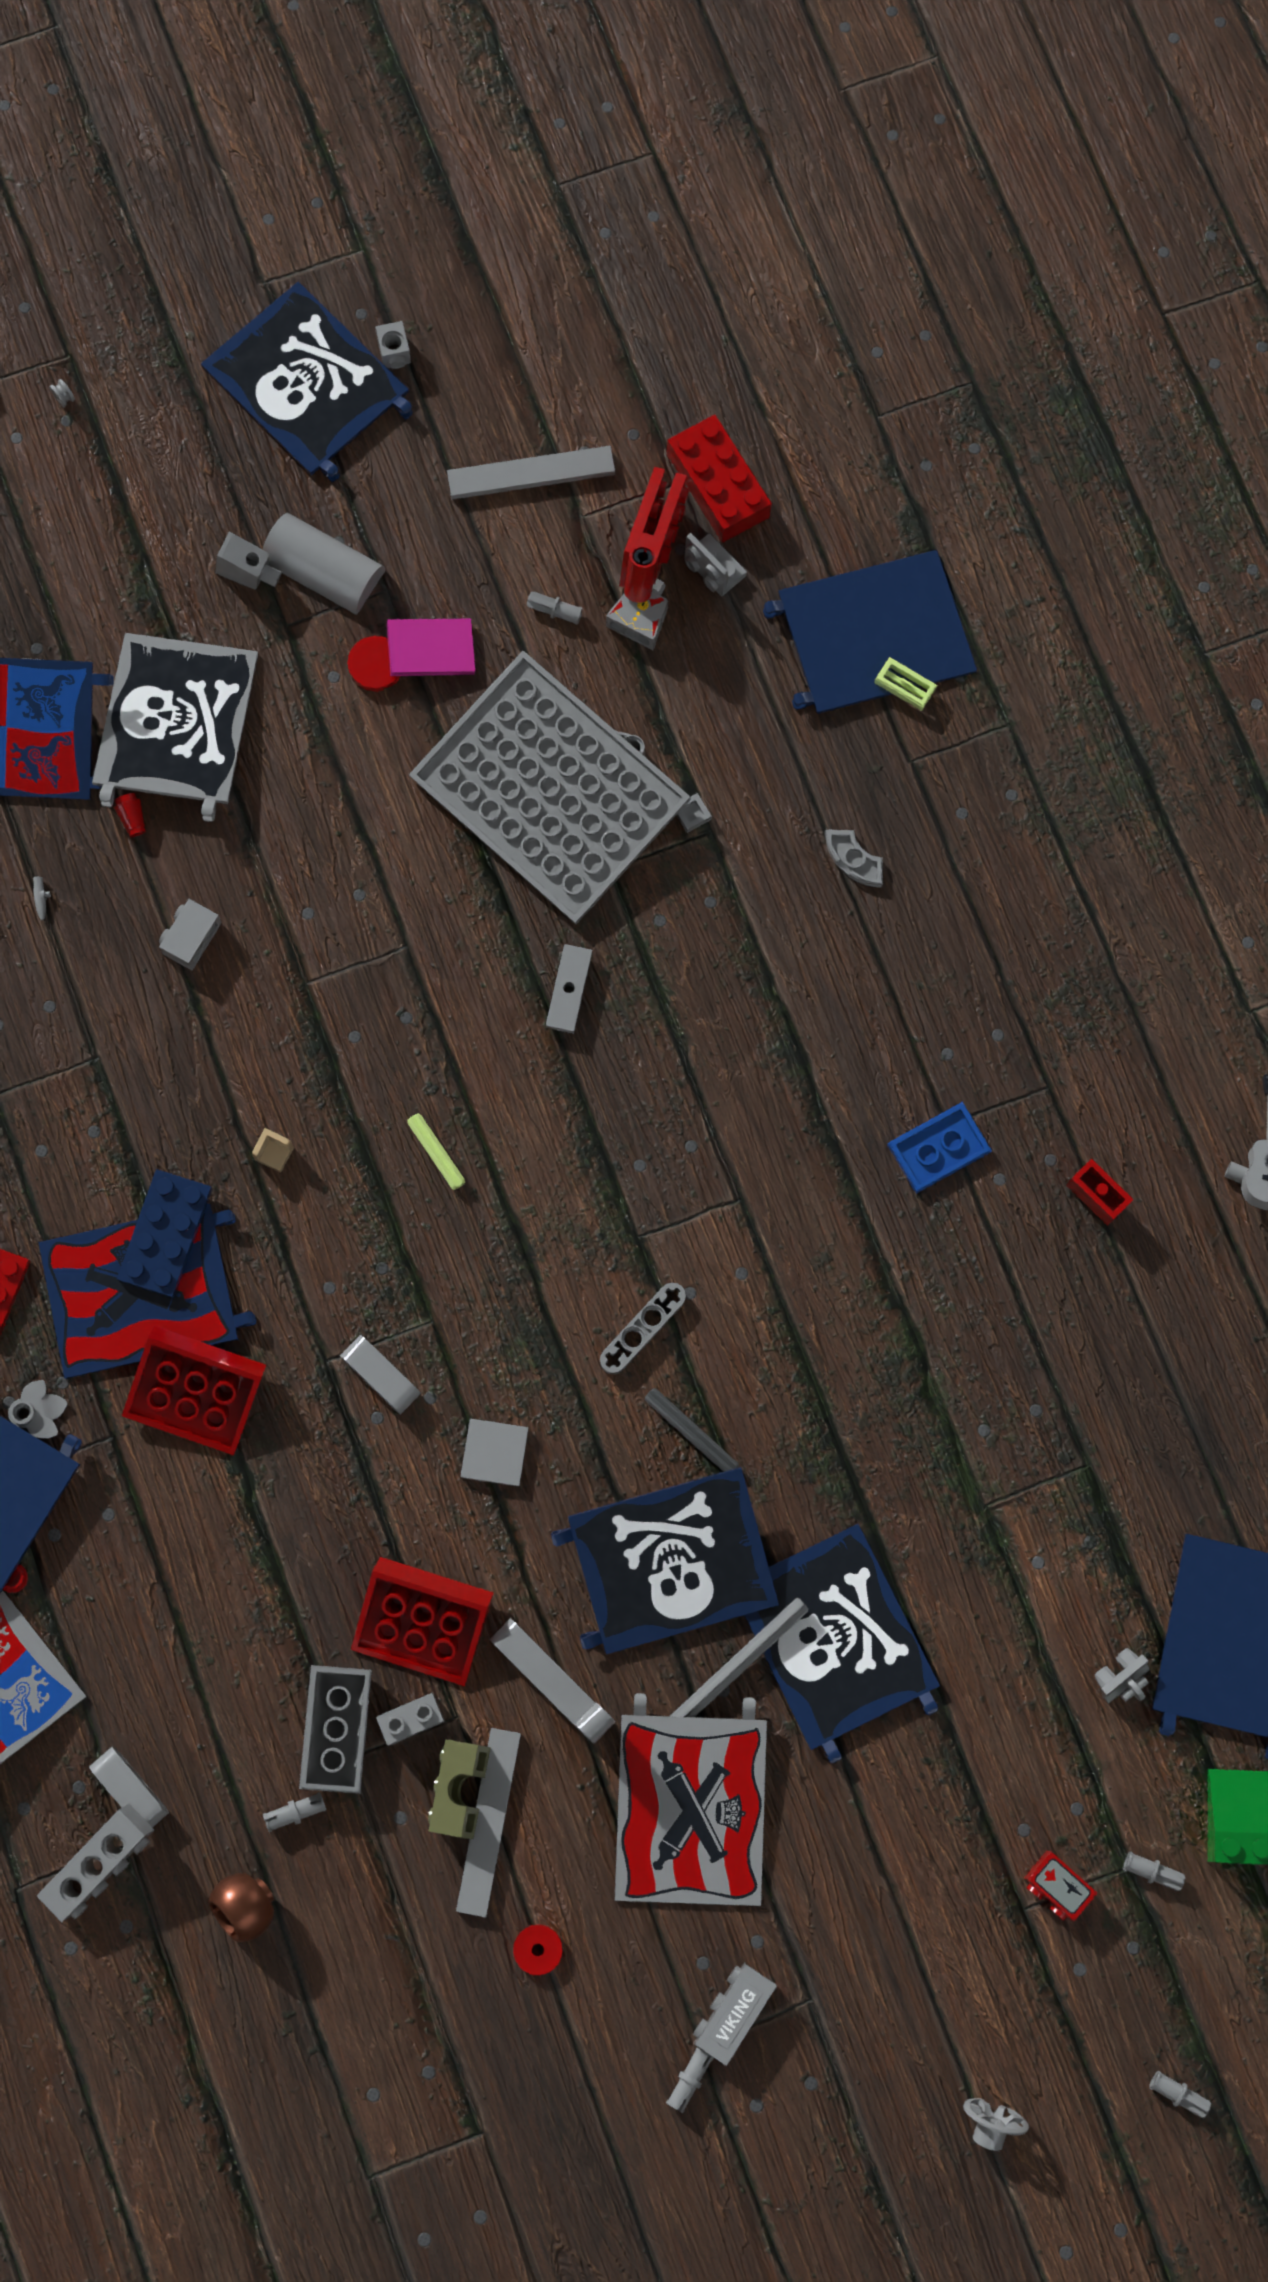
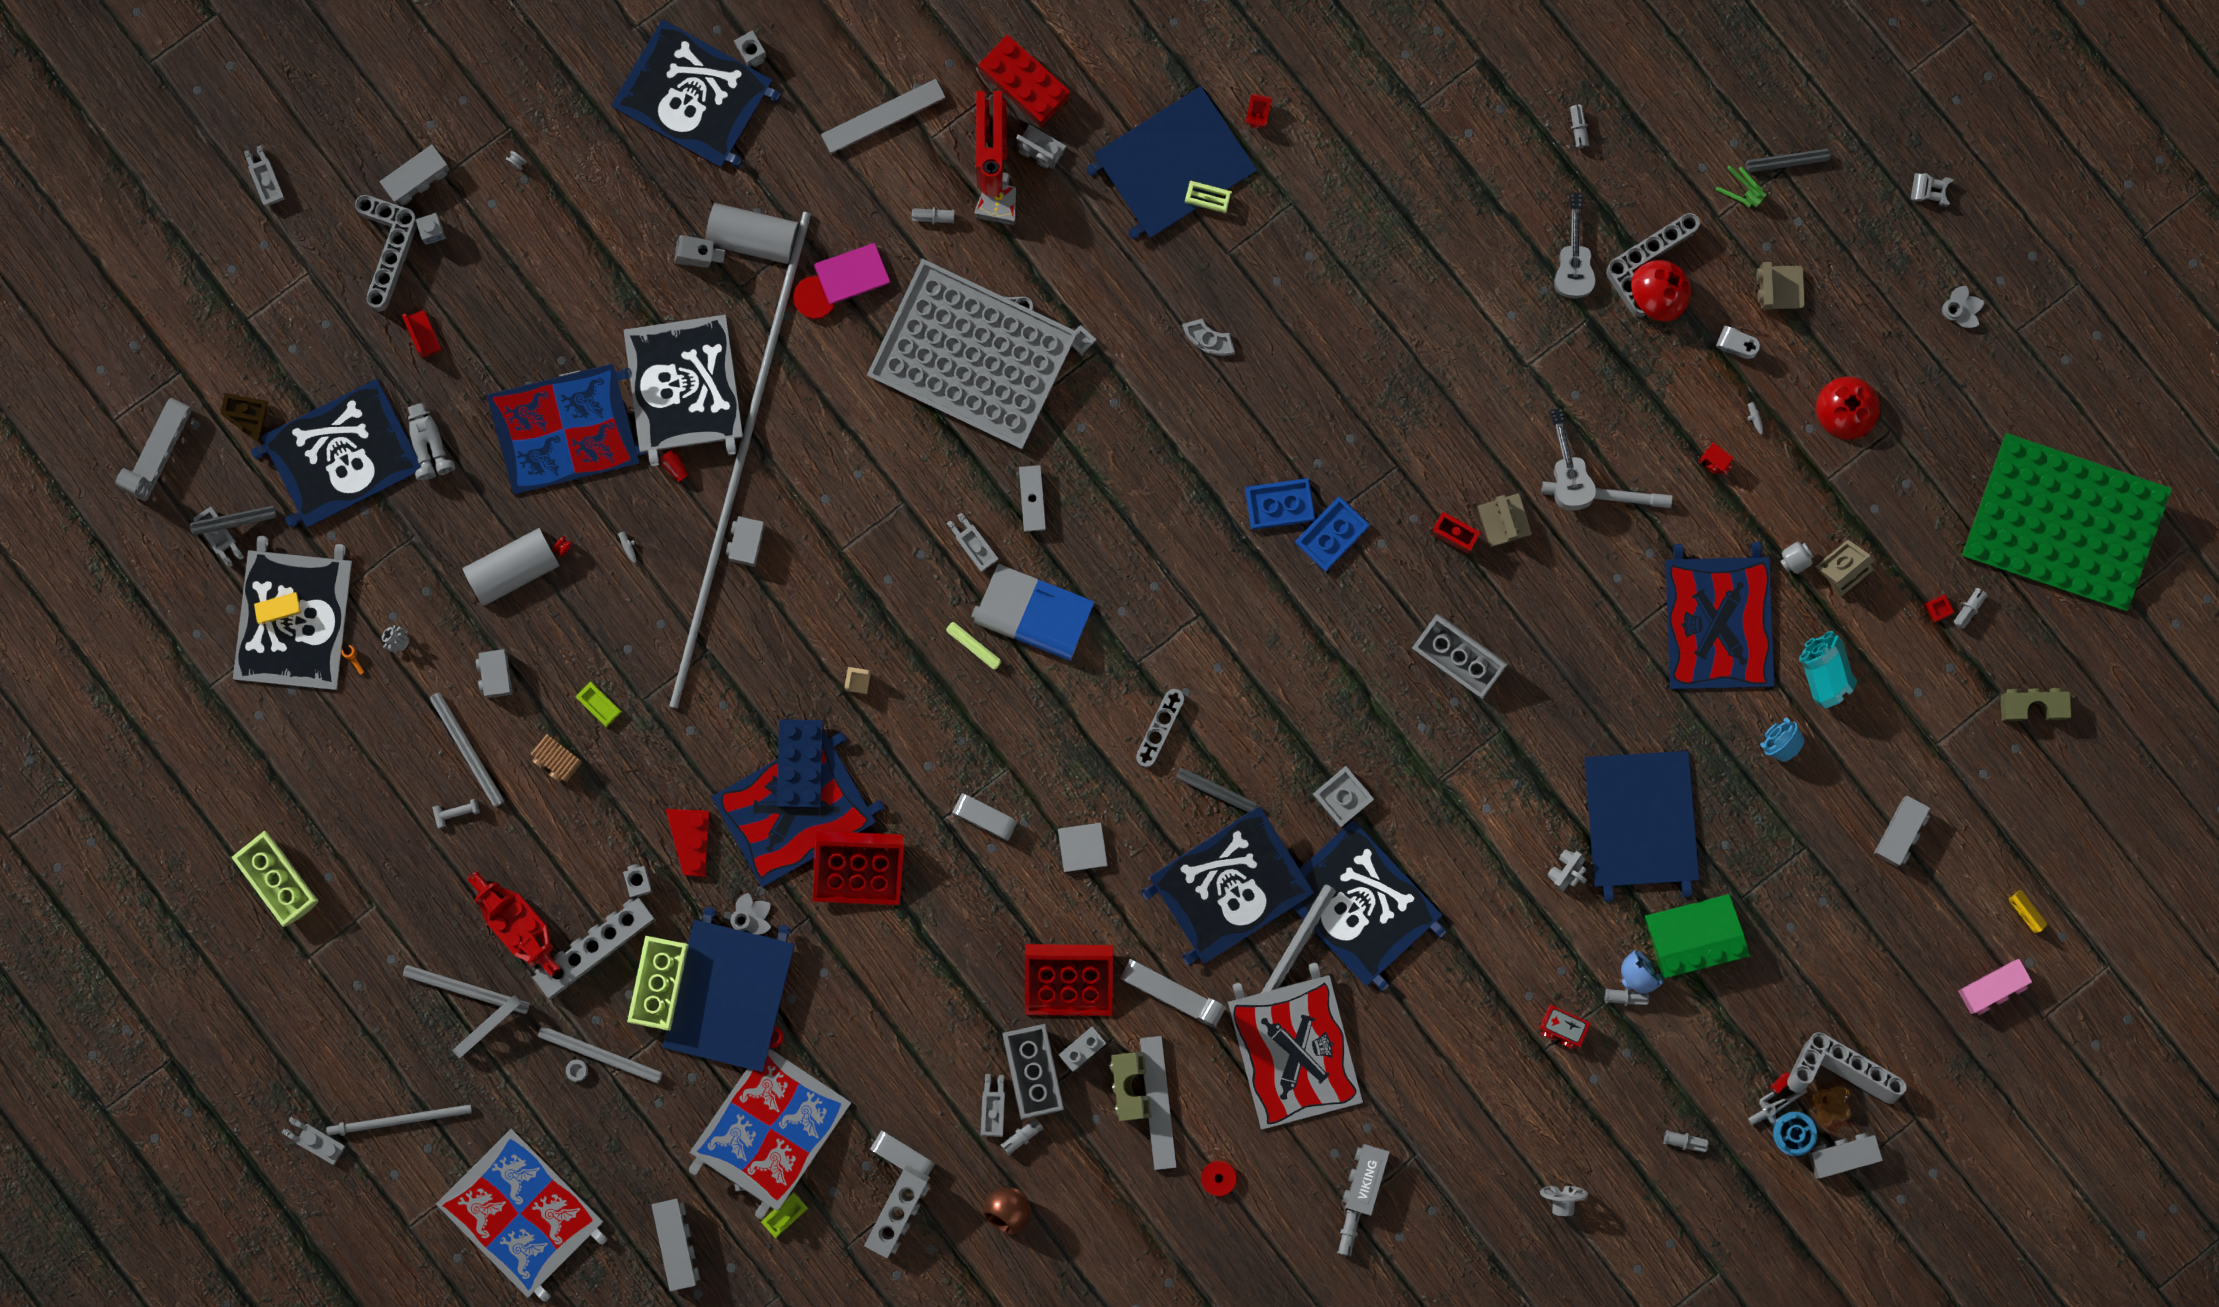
camera: 15 degrees left, 5 degrees up
(212, 839) = (740, 460): none -> light grey piece
(268, 1762) = (993, 1108): none -> light grey hinge
(477, 1024) = (974, 544): none -> light grey hinge
(525, 1132) = (1033, 612): none -> door
(854, 1489) = (1343, 796): none -> light grey plate
(883, 1090) = (1280, 504): none -> blue tile
(1000, 598) = (1258, 110): none -> red bracket
(1060, 1351) = (1459, 655): none -> light grey brick
(1167, 1195) = (1504, 520): none -> dark tan bracket
(1181, 1845) = (1639, 973): none -> medium blue cylinder

